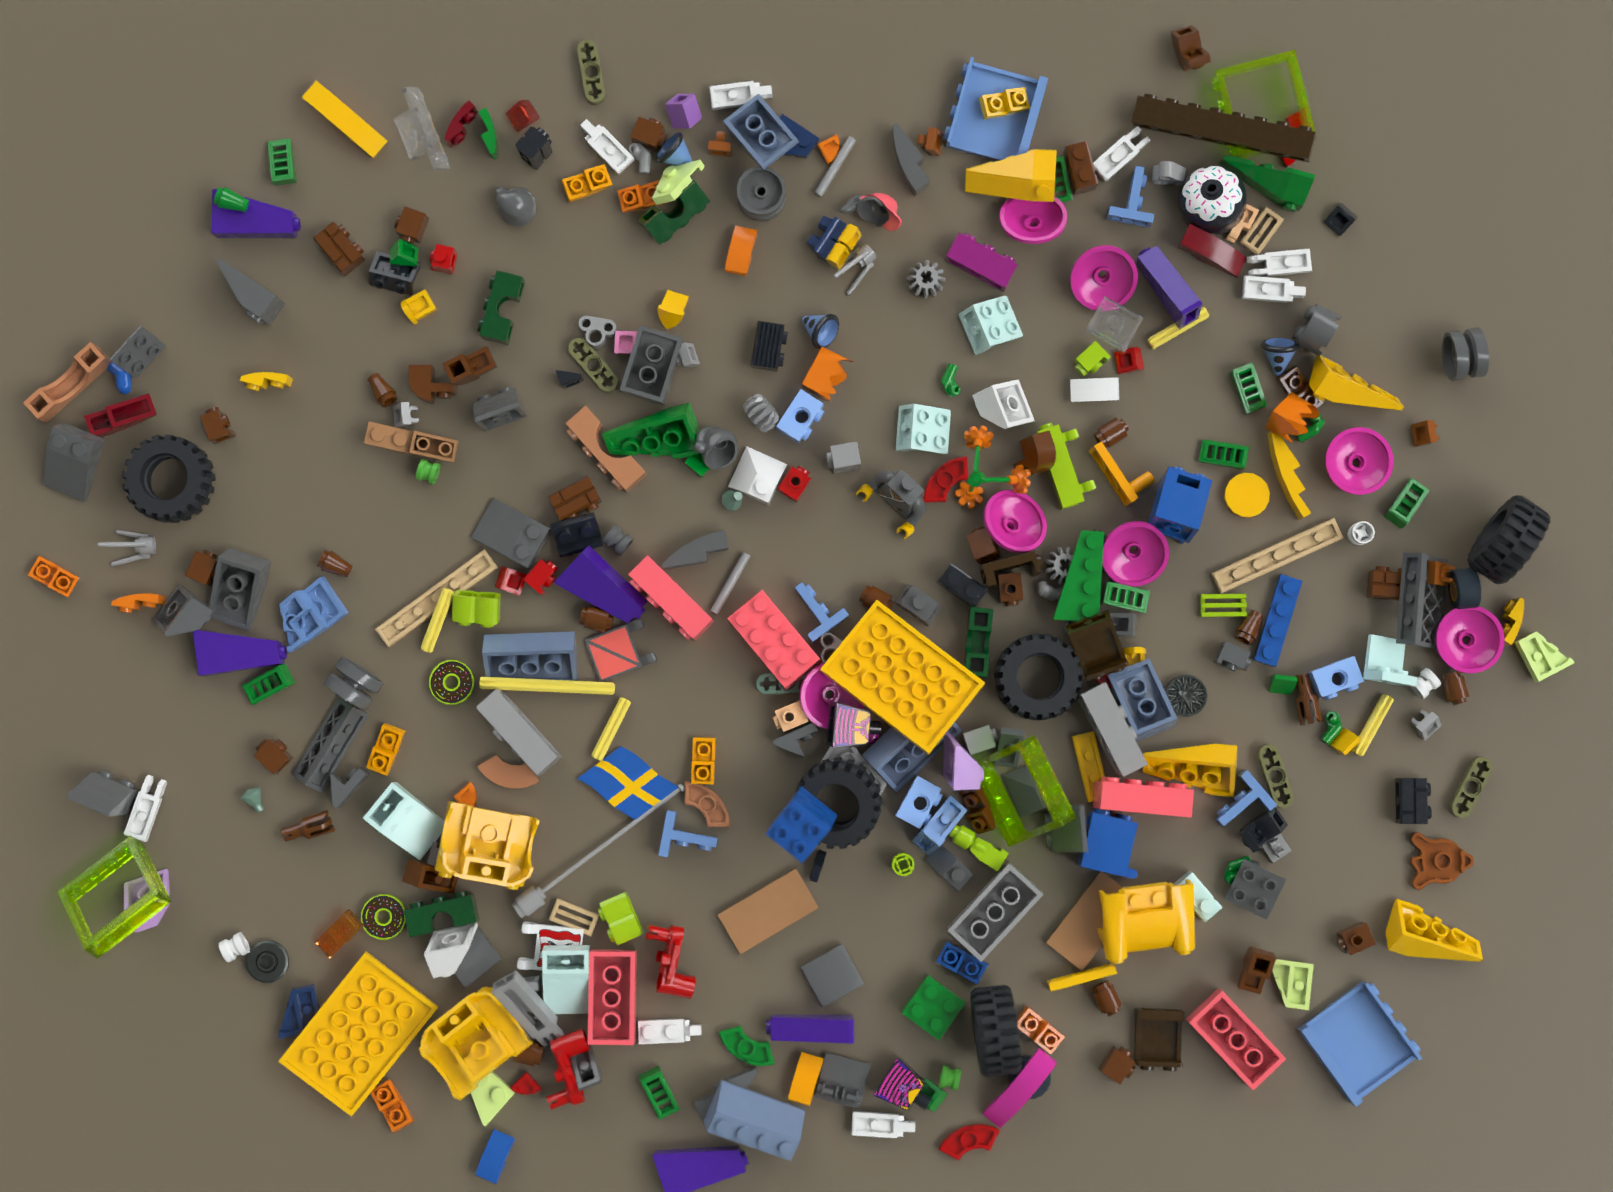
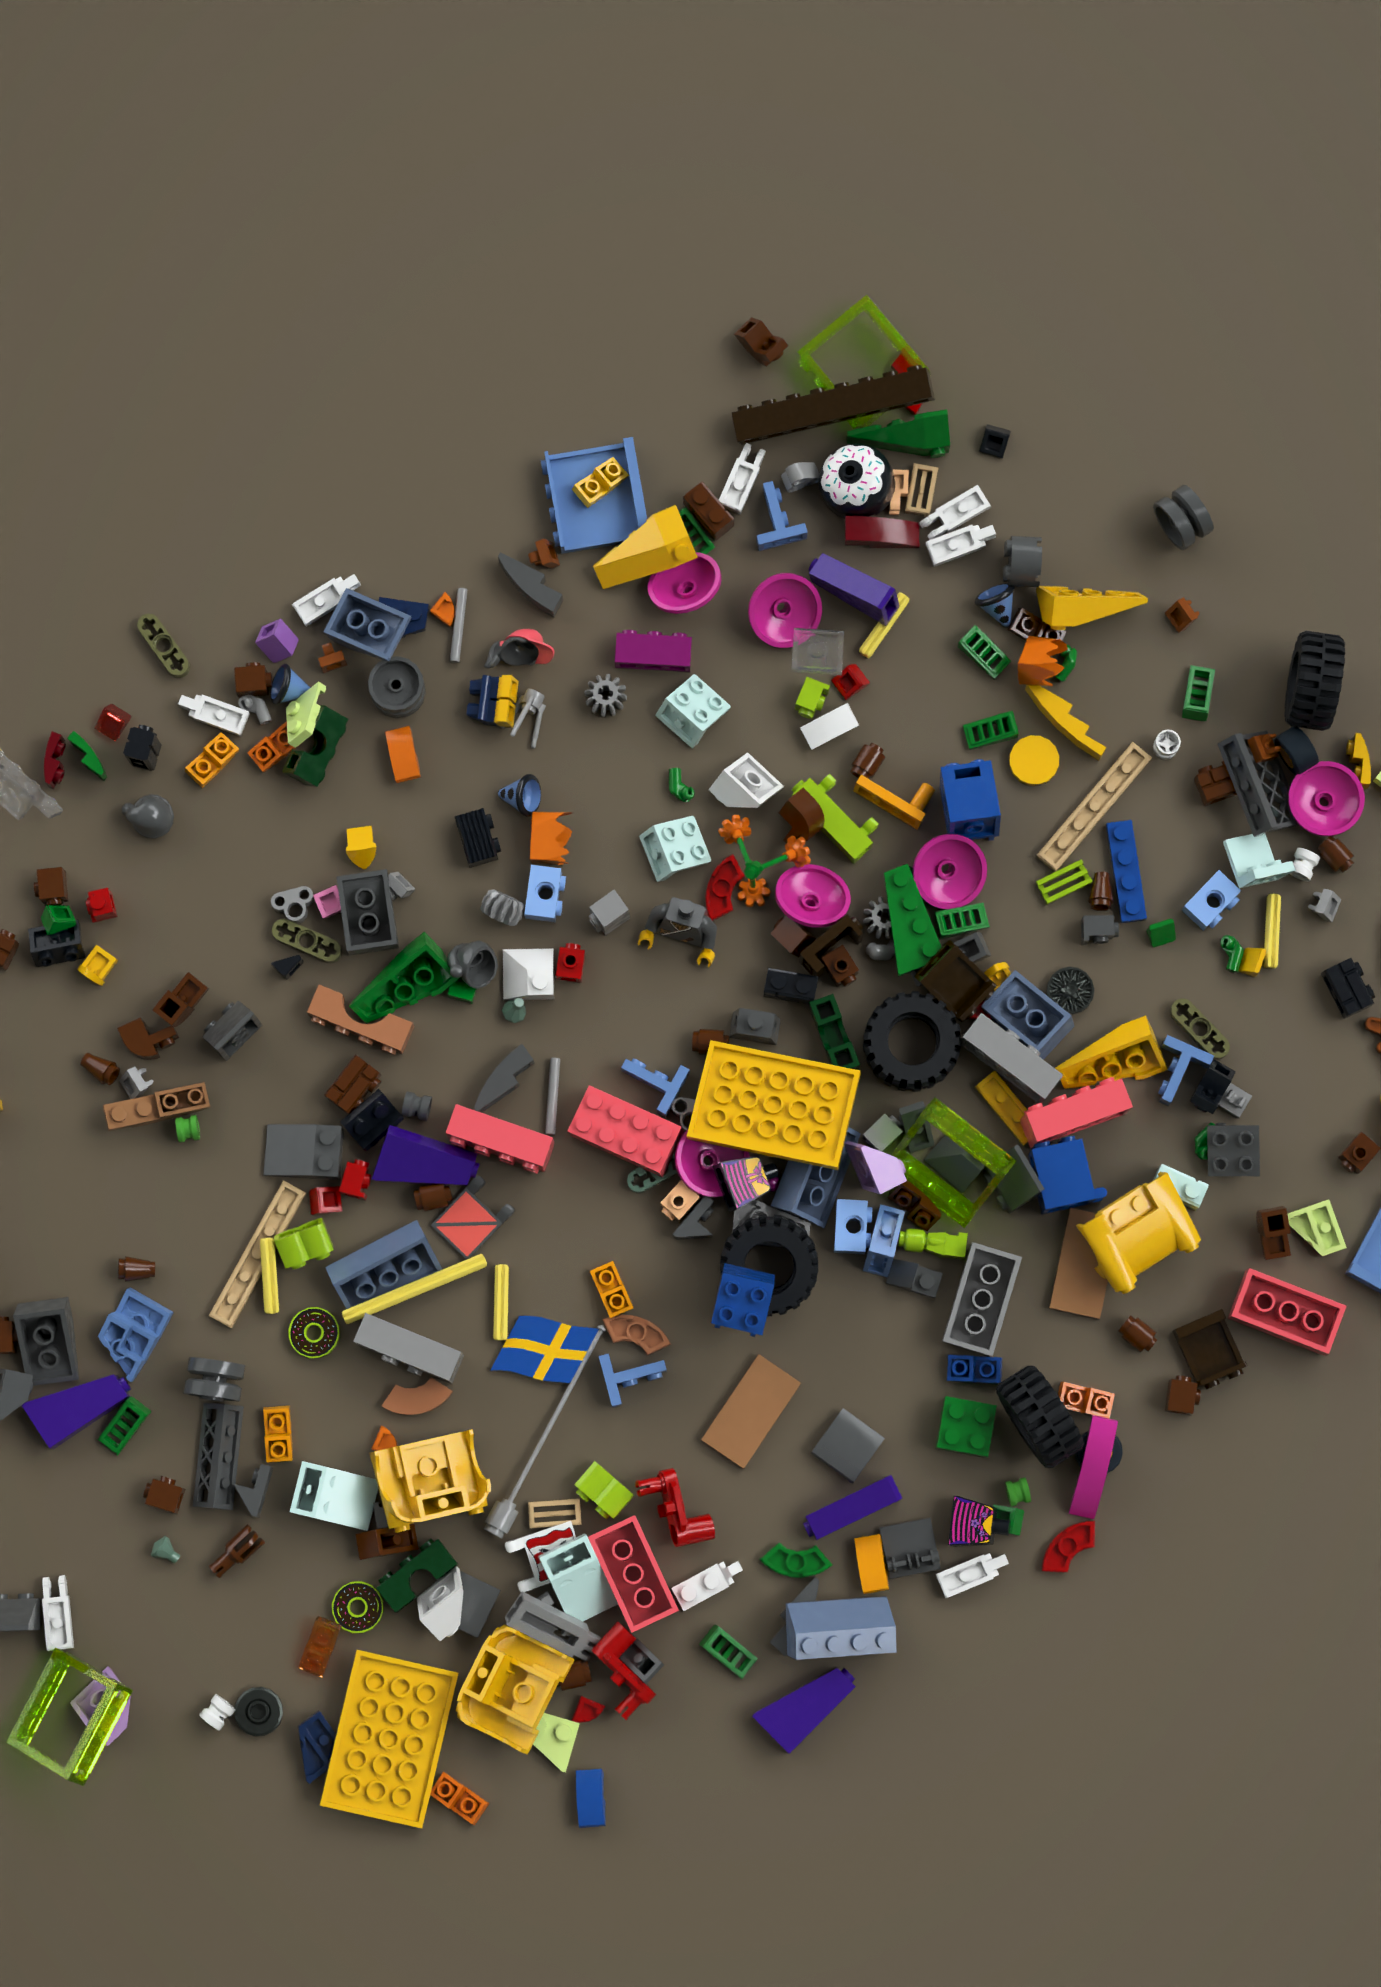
camera: 25 degrees left, 5 degrees down
(503, 288) = (178, 905): dark green arch -> none
(817, 867) = (780, 1343): black tile -> none
(902, 864) = (863, 1300): lime wheel -> none
(1081, 977) = (1102, 1324): yellow tile -> none
(1305, 697) = (1191, 935): reddish brown arm -> none
(1373, 456) = (1141, 661): dark pink dish -> none

